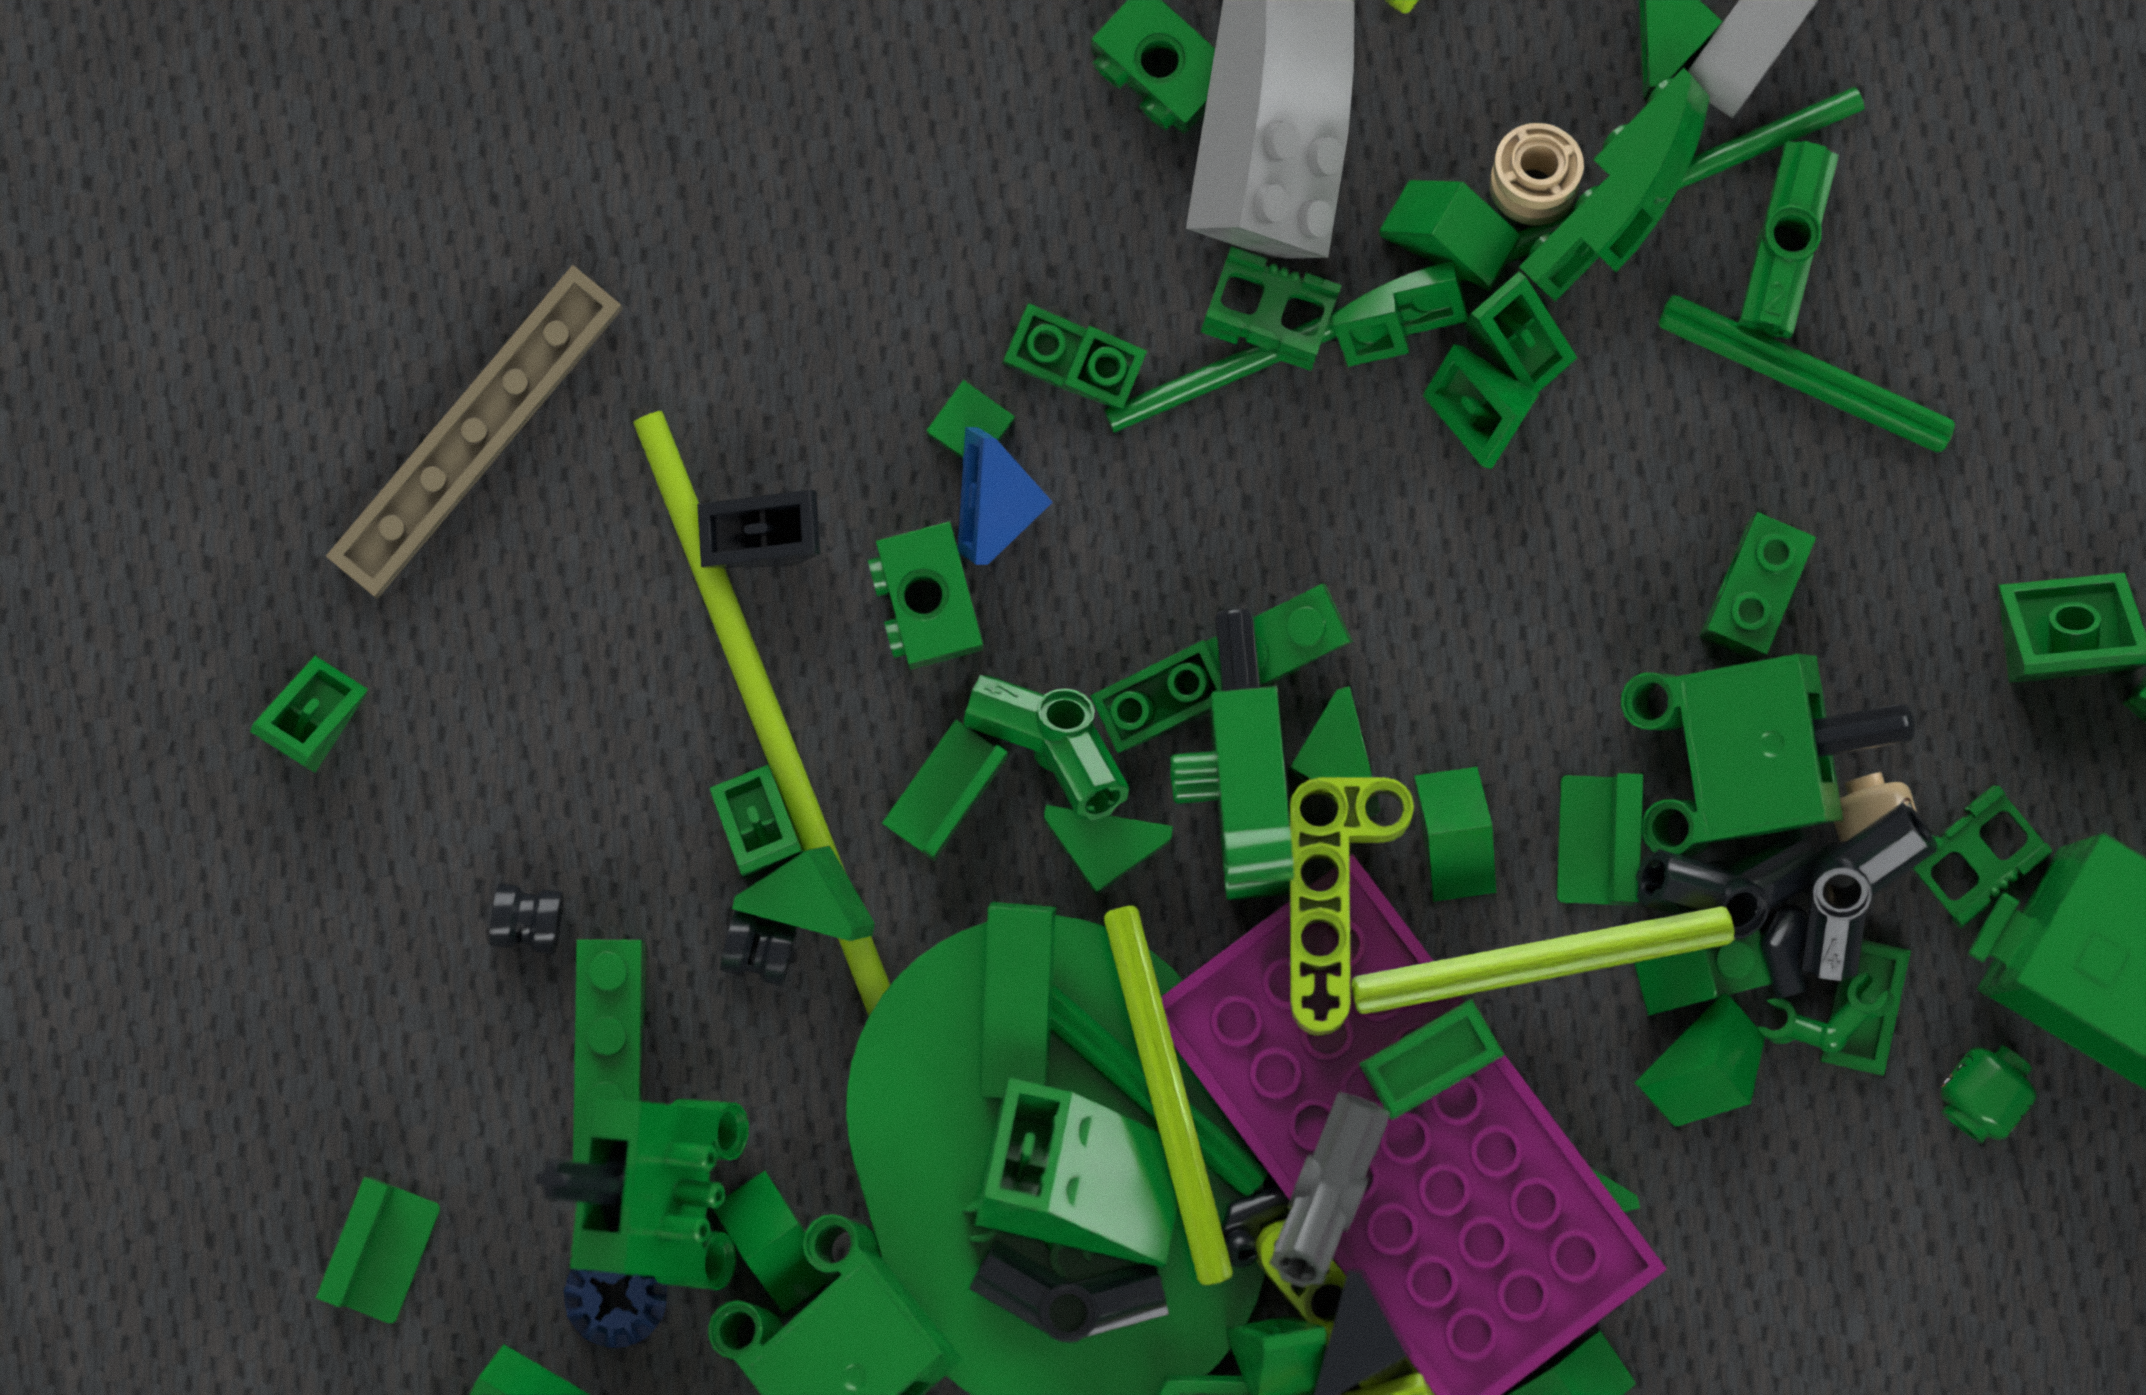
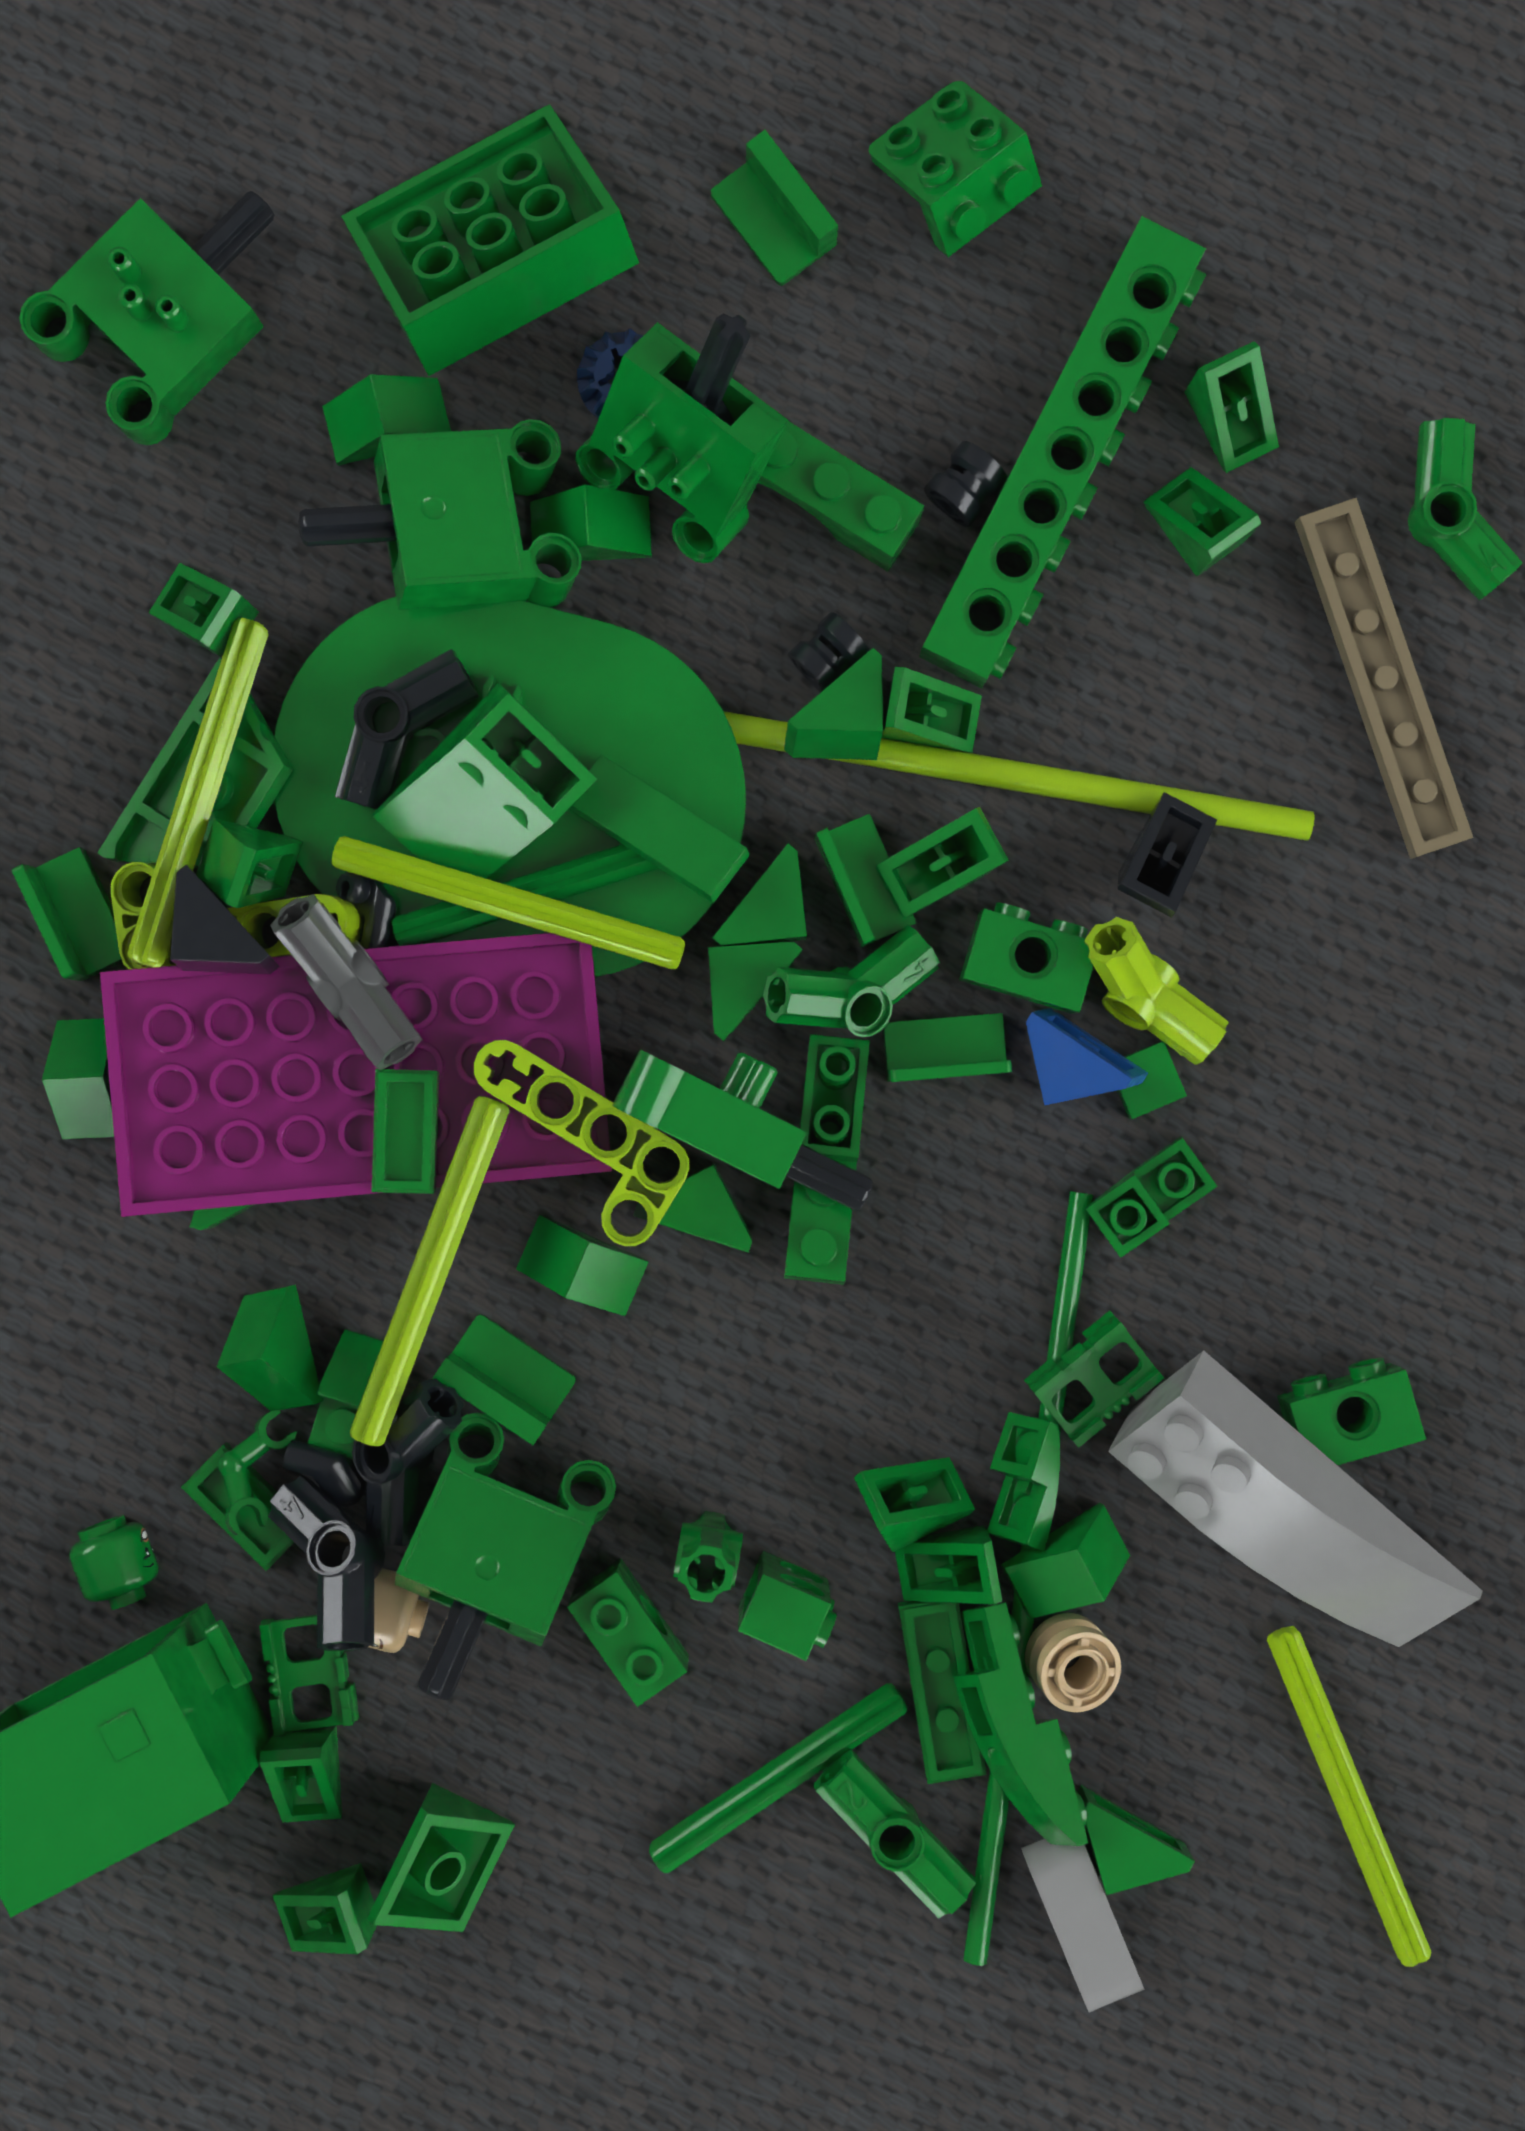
camera: 125 degrees right, 5 degrees up
(220, 881) = (1151, 261): none -> green brick
(232, 1109) = (959, 163): none -> green bracket
(304, 429) = (1445, 477): none -> green piece
(428, 686) = (1201, 519): none -> green slope
(889, 727) = (942, 862): none -> green slope
(894, 469) = (1147, 992): none -> lime piece
(1024, 858) = (770, 909): none -> green slope
(1054, 623) = (945, 1047): none -> green panel
(1610, 299) = (934, 1655): none -> green tile
(1640, 555) = (708, 1556): none -> green piece
(1644, 459) = (786, 1607): none -> green brick
(2071, 800) = (304, 1774): none -> green slope

